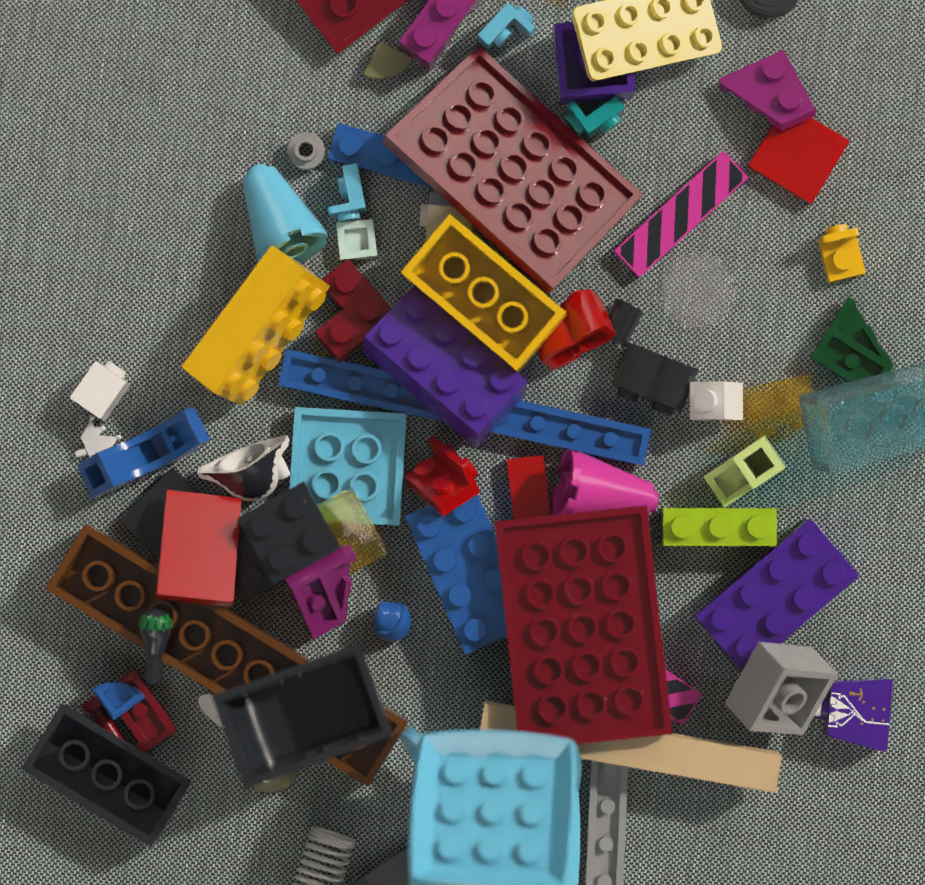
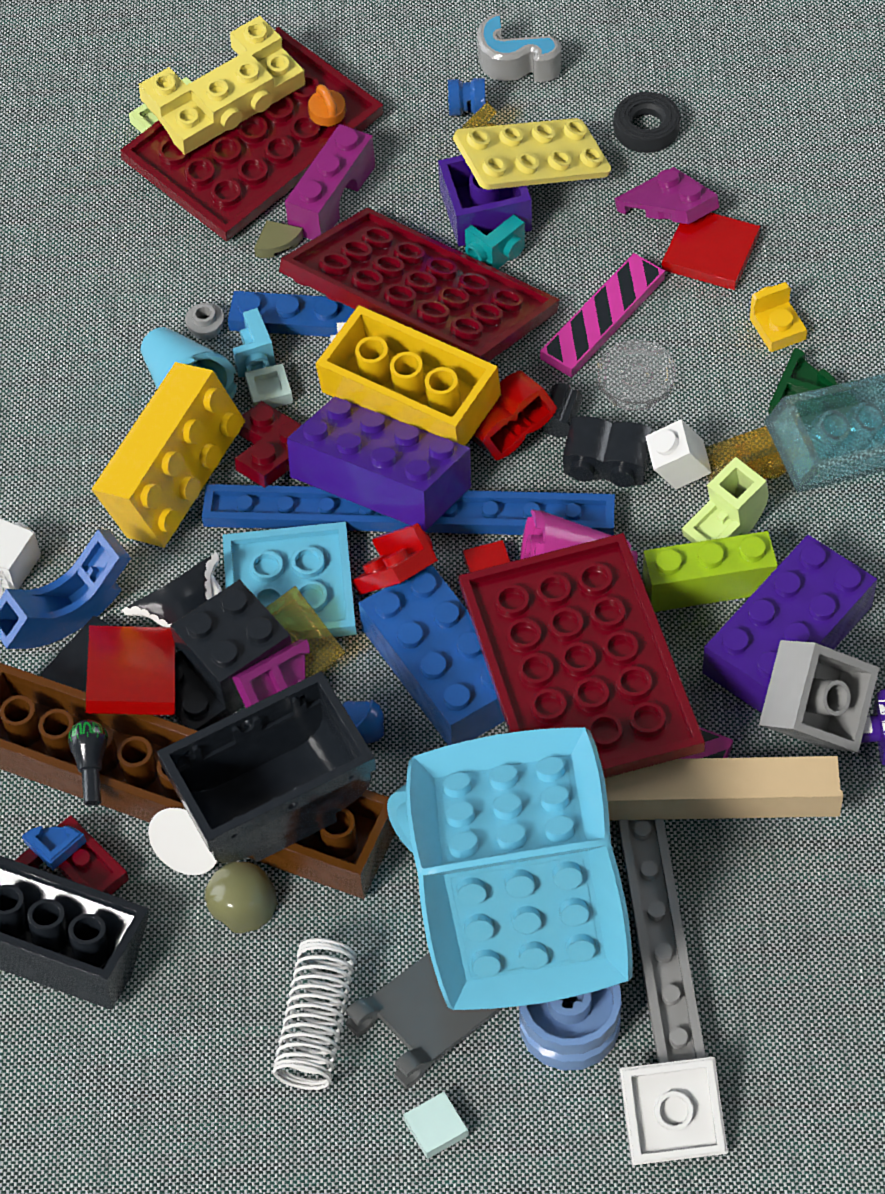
camera: 10 degrees left, 30 degrees down
(499, 29) = (390, 184): medium azure bracket -> none

